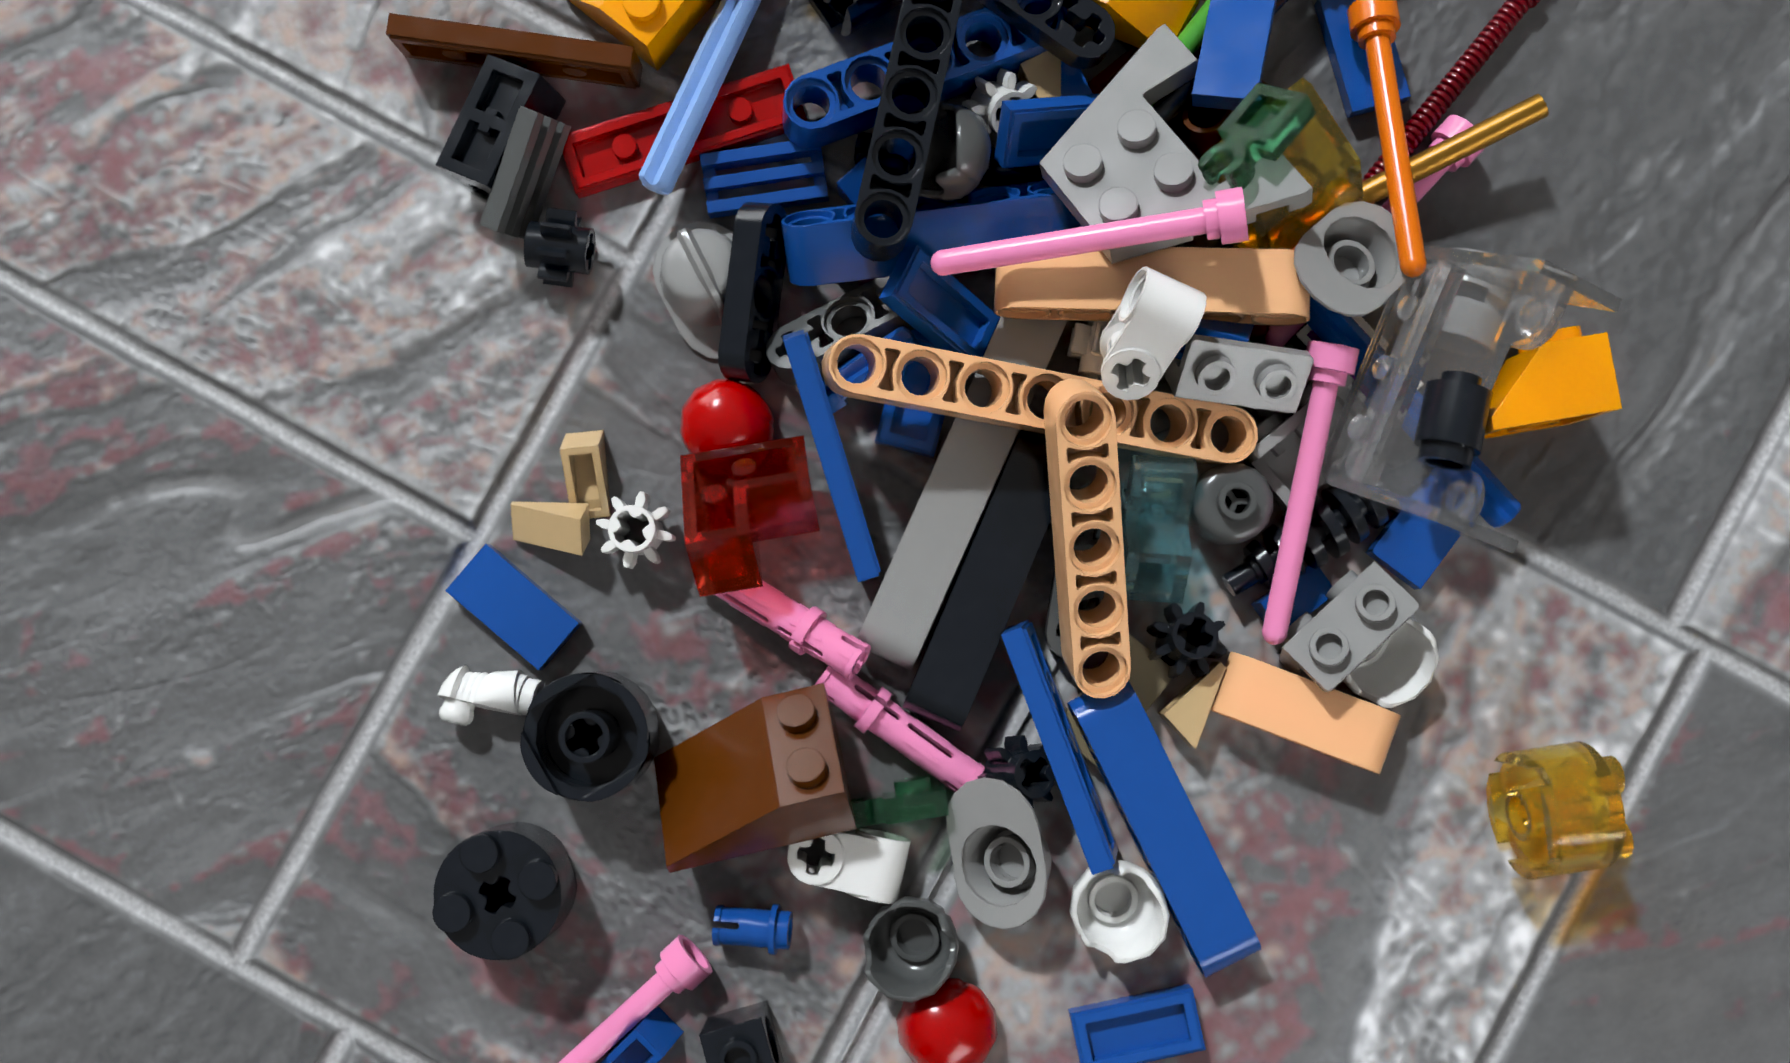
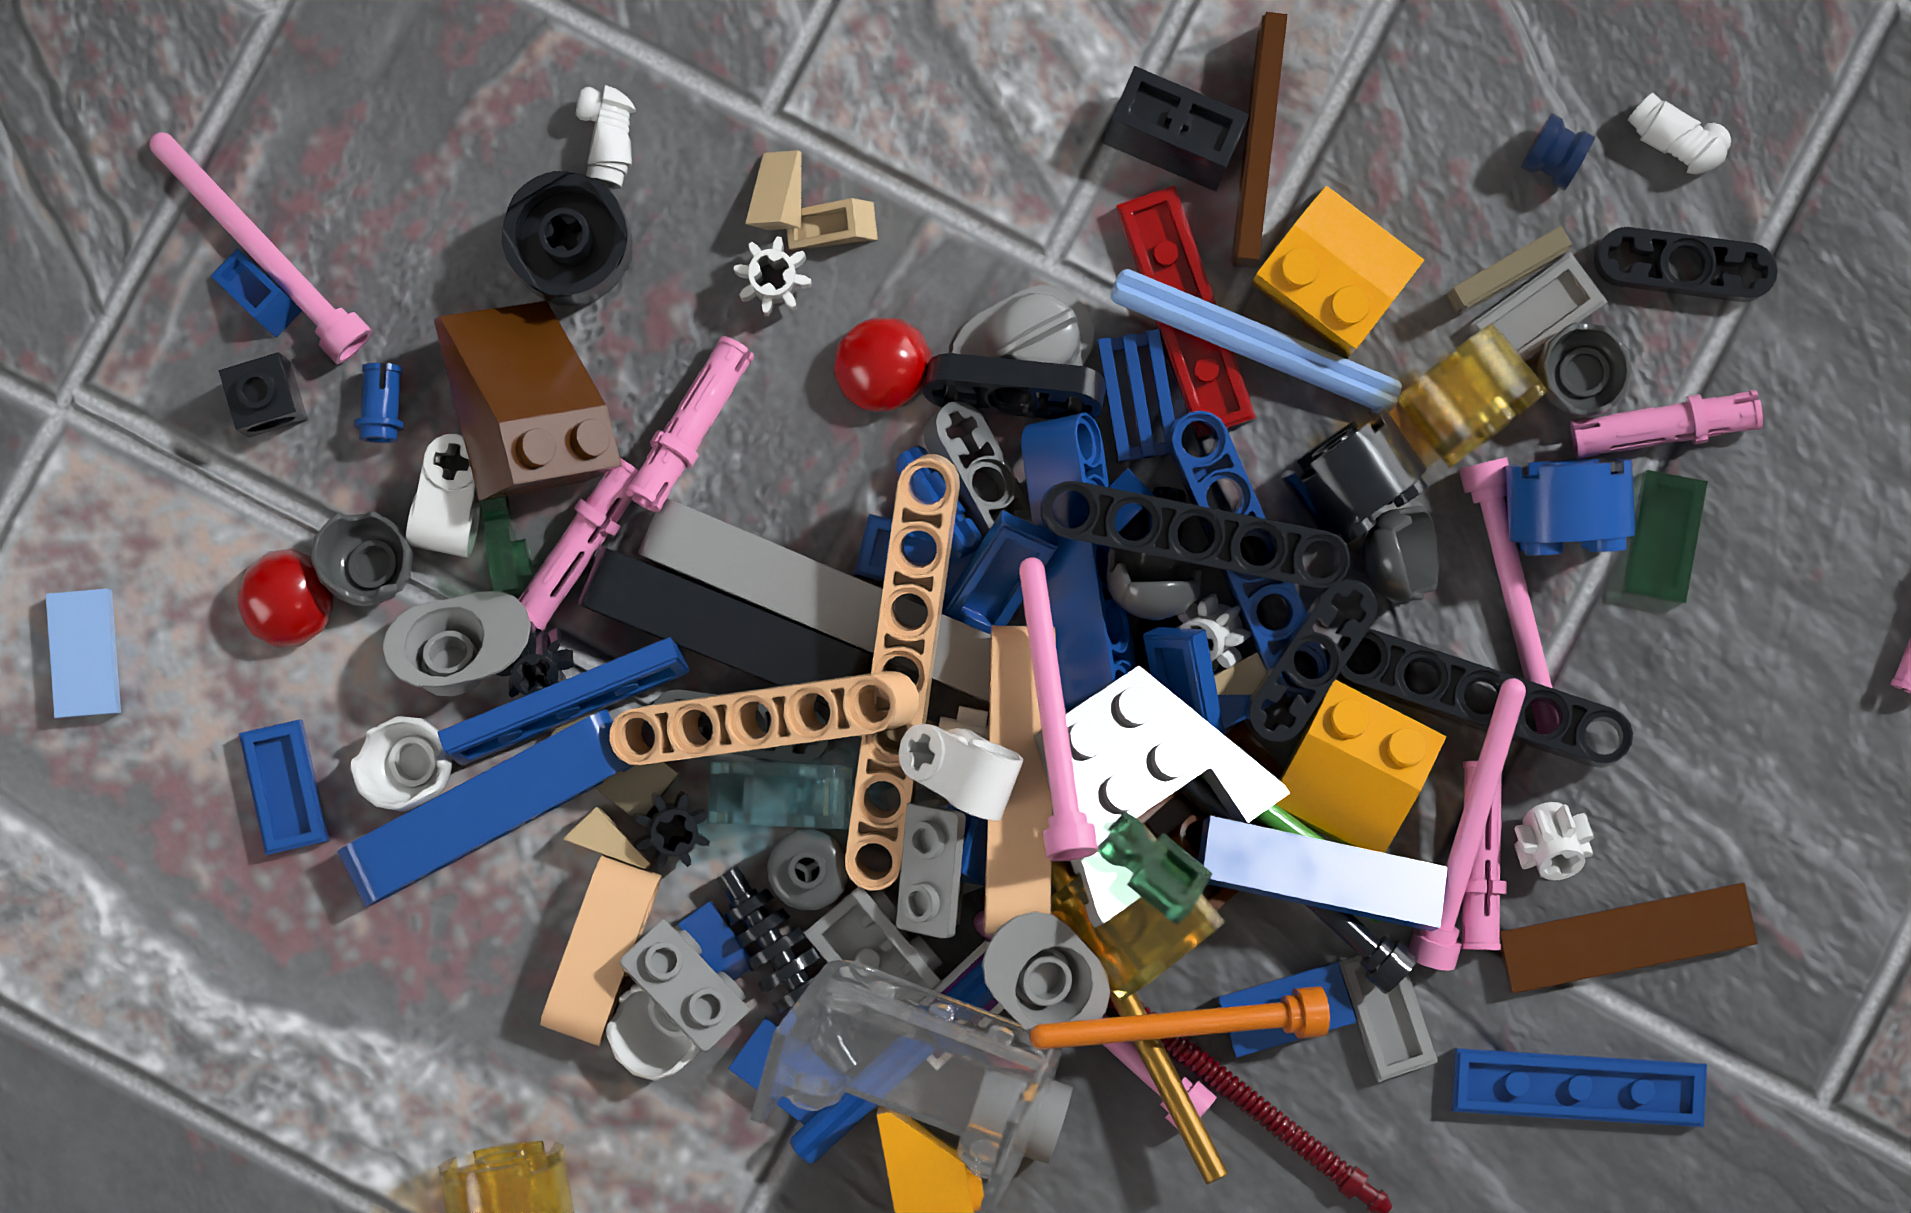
camera: 85 degrees right, 0 degrees up
(472, 905) = (401, 126): black brick -> none
(513, 606) = (695, 156): blue tile -> none
(525, 173) = (1129, 154): dark grey tile -> none
(559, 247) = (1057, 191): black gear -> none
(740, 499) = (800, 374): clear red brick -> none
(831, 454) = (848, 468): blue tile -> none
(1329, 371) = (938, 958): bright pink piece -> none
(1452, 421) = (886, 1076): black brick -> none

